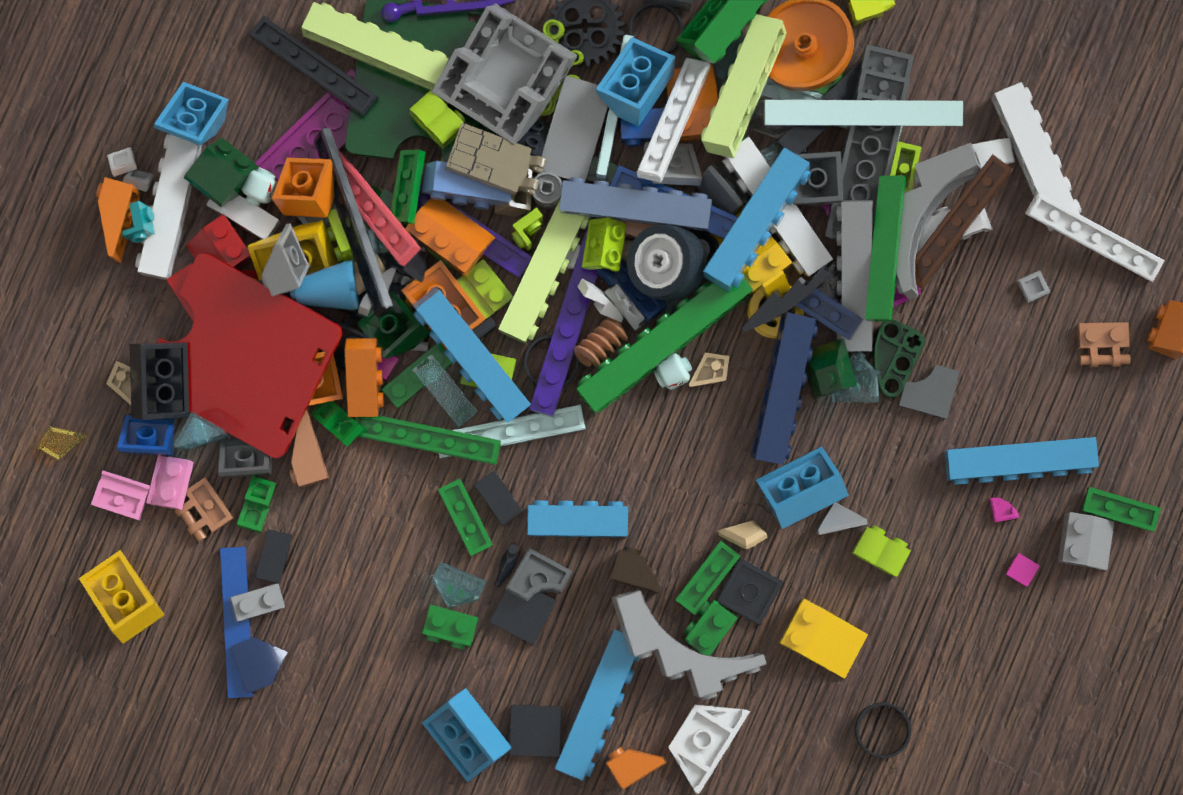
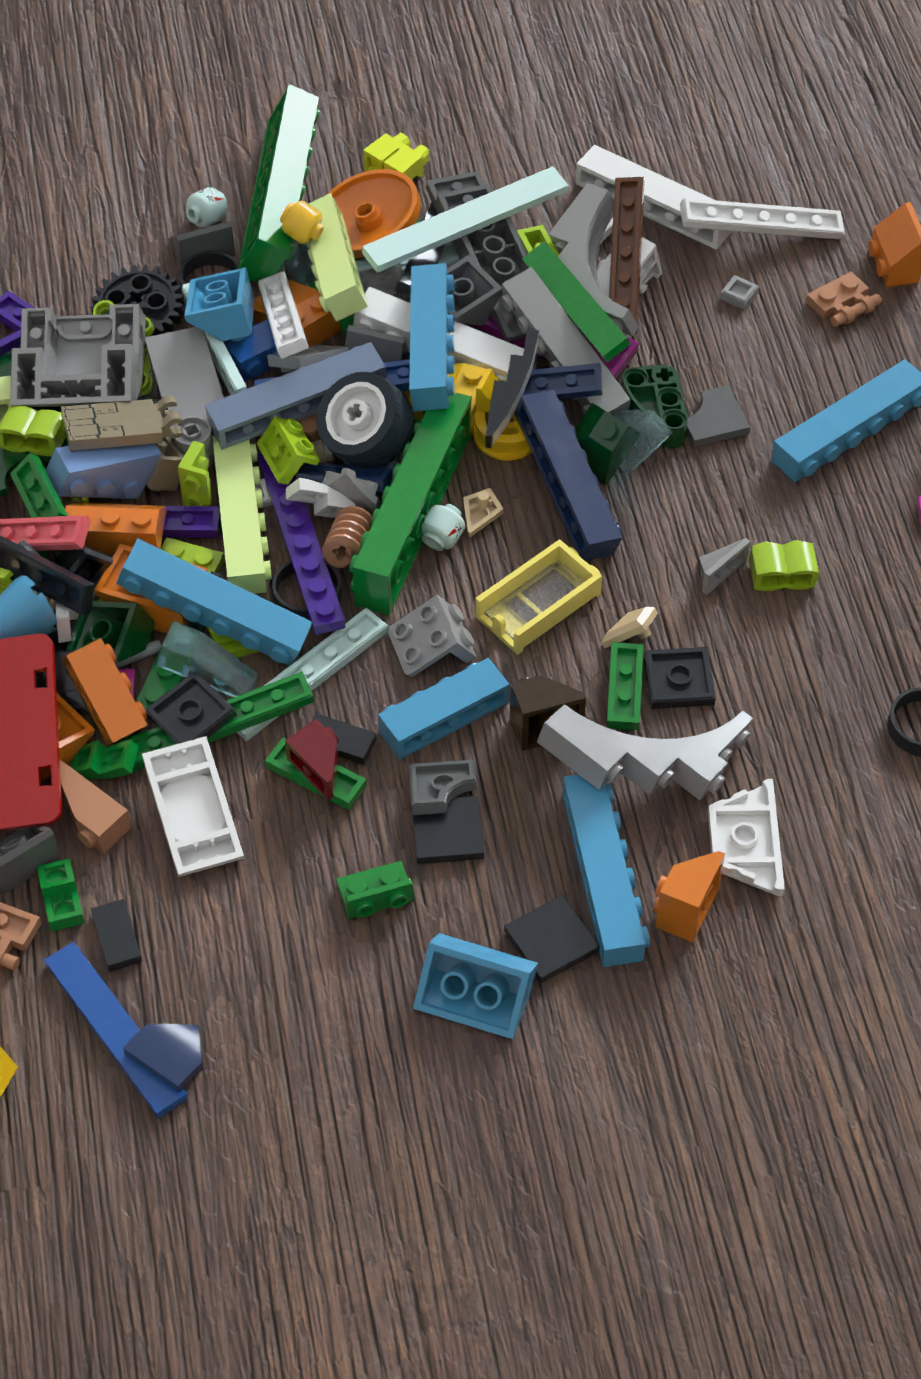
camera: 30 degrees left, 30 degrees down
(257, 602) = (126, 988): light grey plate -> none
(371, 496) = (192, 806): none -> white slope
(410, 424) = (190, 710): none -> black tile
(456, 585) = (354, 847): clear light blue slope -> none
(468, 514) = (315, 756): none -> dark red slope
(507, 564) = (395, 791): black bar -> none
(606, 458) = (429, 635): none -> light grey bracket
(700, 470) = (538, 595): none -> light yellow door
(710, 628) = (663, 719): green bracket -> none
(735, 49) = (302, 222): none -> yellow head
(802, 487) = (658, 554): dark azure slope -> none
(823, 638) = (788, 672): yellow slope -> none
(1002, 510) = (870, 475): dark pink tile -> none

